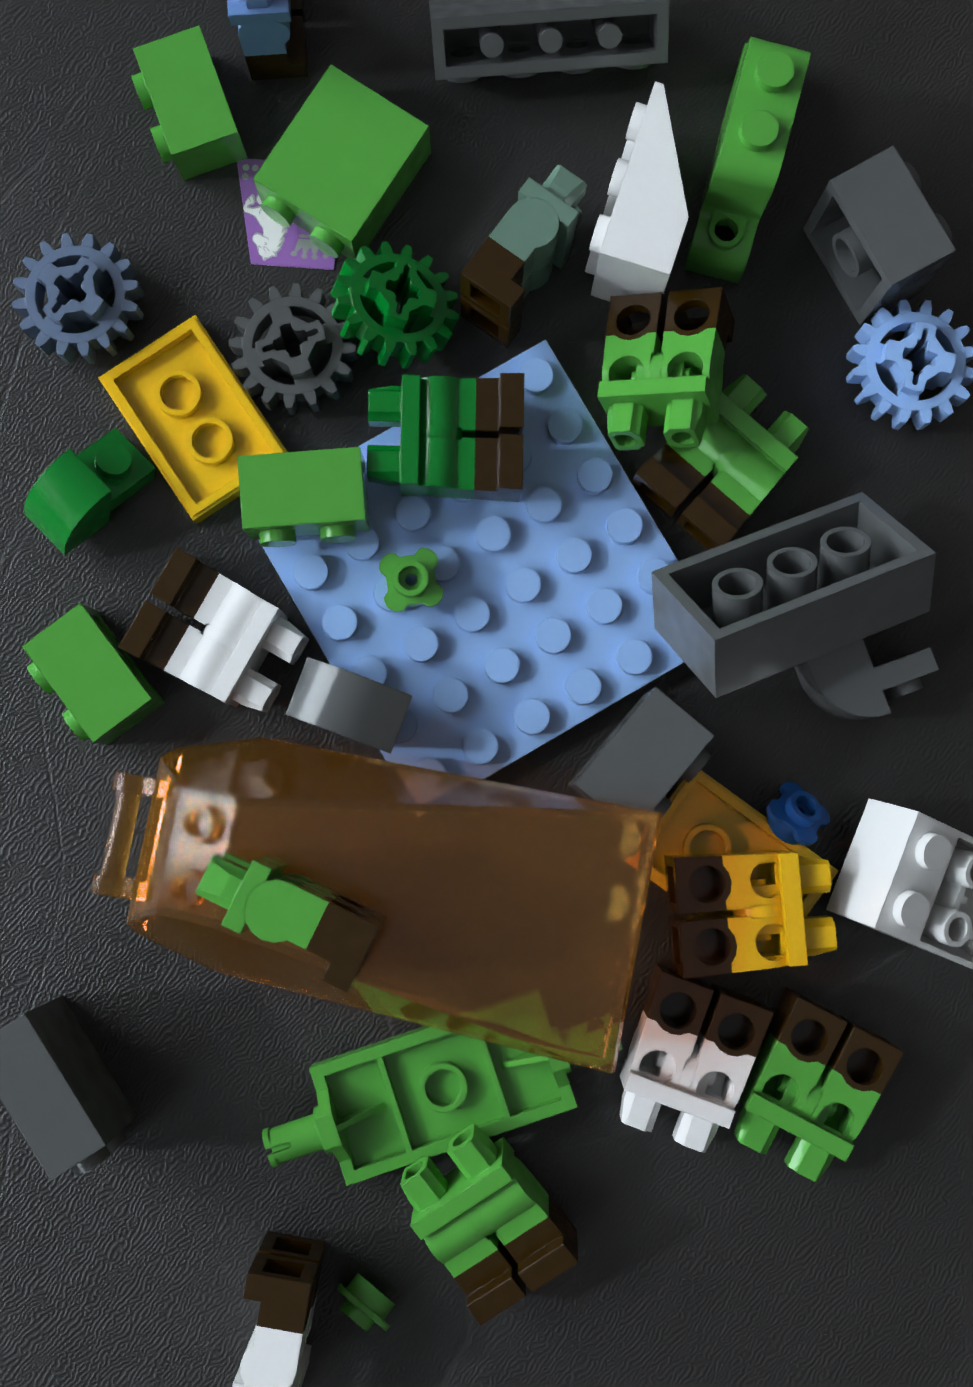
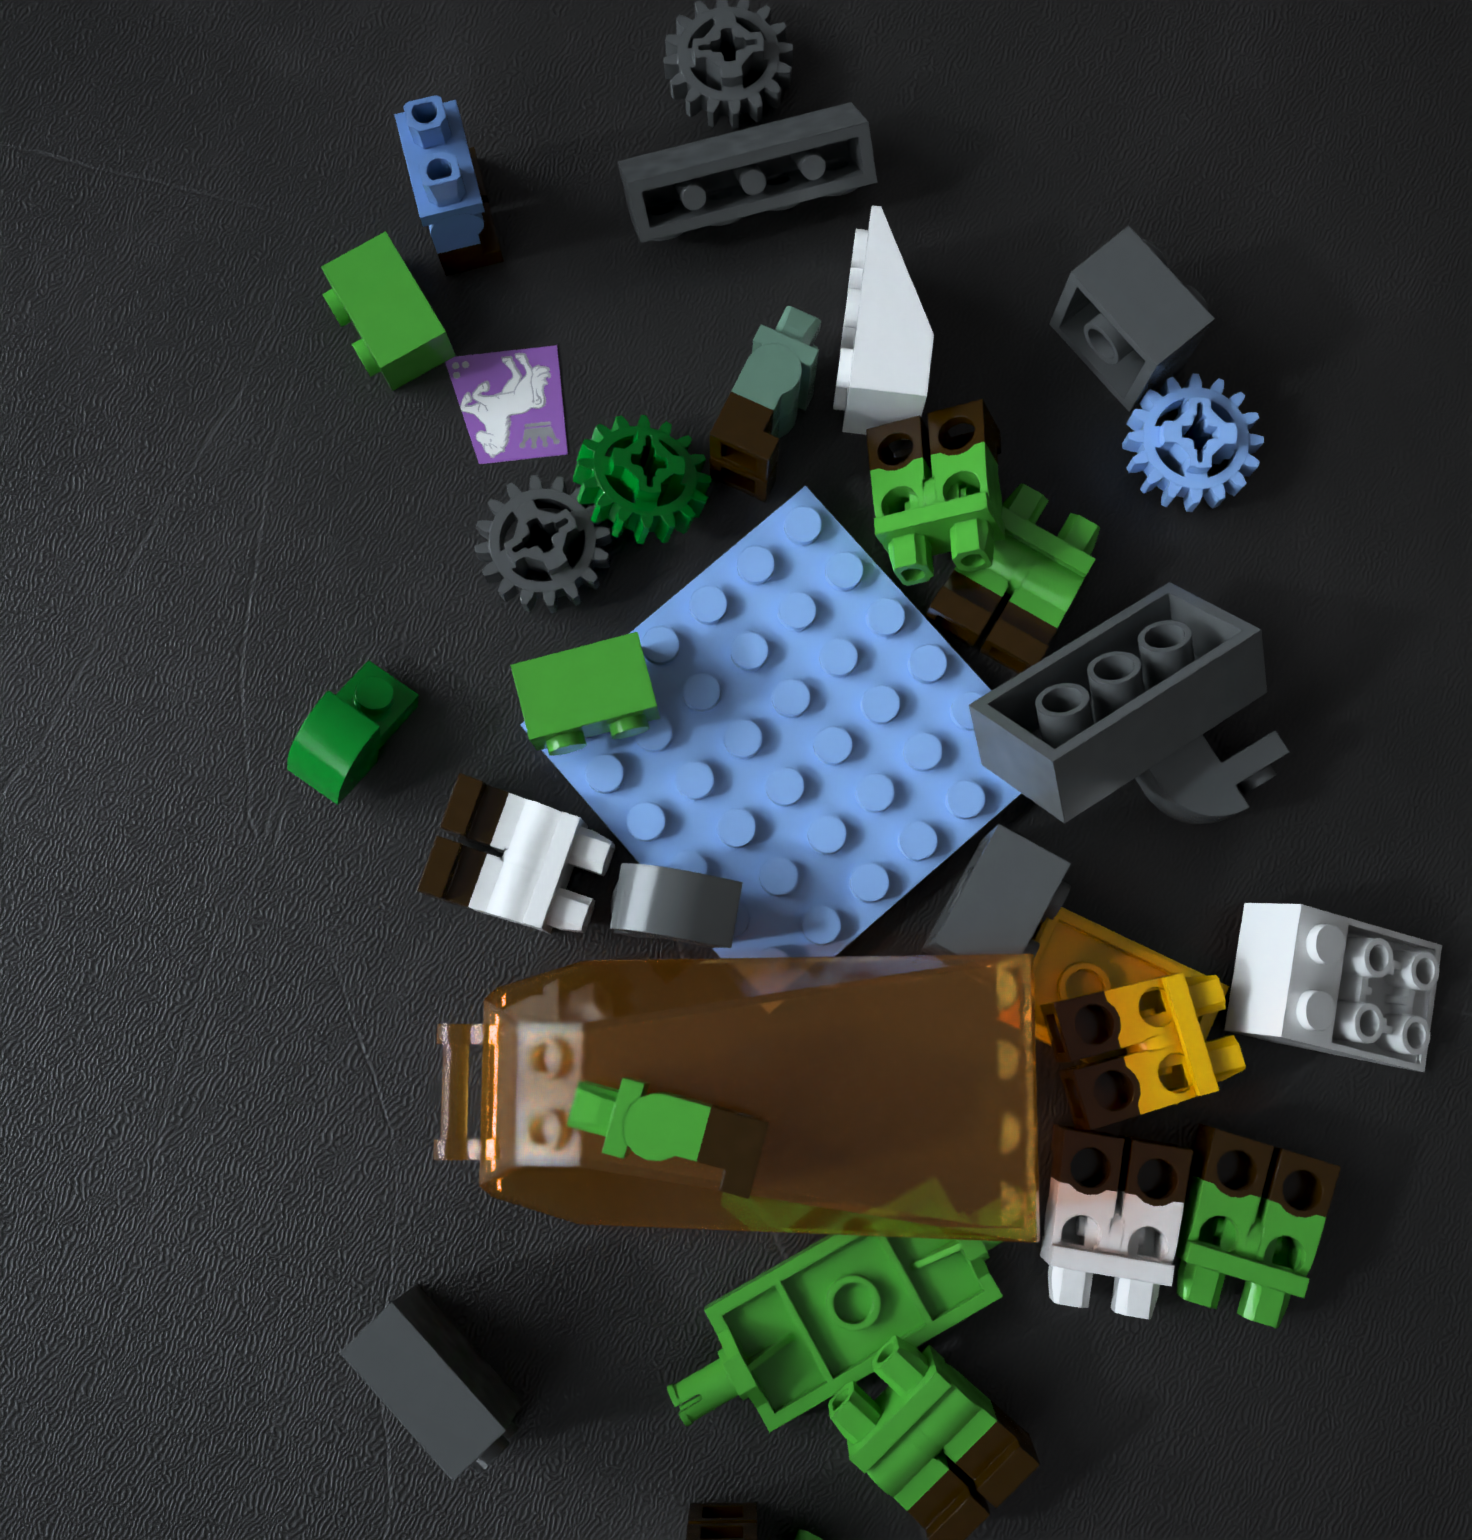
camera: 10 degrees left, 5 degrees down
(72, 324) = (299, 506): sand blue gear -> none
(91, 676) = (390, 929): bright green brick -> none
(191, 416) = (447, 634): yellow tile -> none
(342, 164) = (559, 346): bright green brick -> none
(425, 590) = (707, 778): bright green plate -> none
(455, 436) = (732, 604): green hips -> none
(747, 156) = (978, 262): bright green brick -> none
(796, 815) = (1171, 936): blue plate -> none

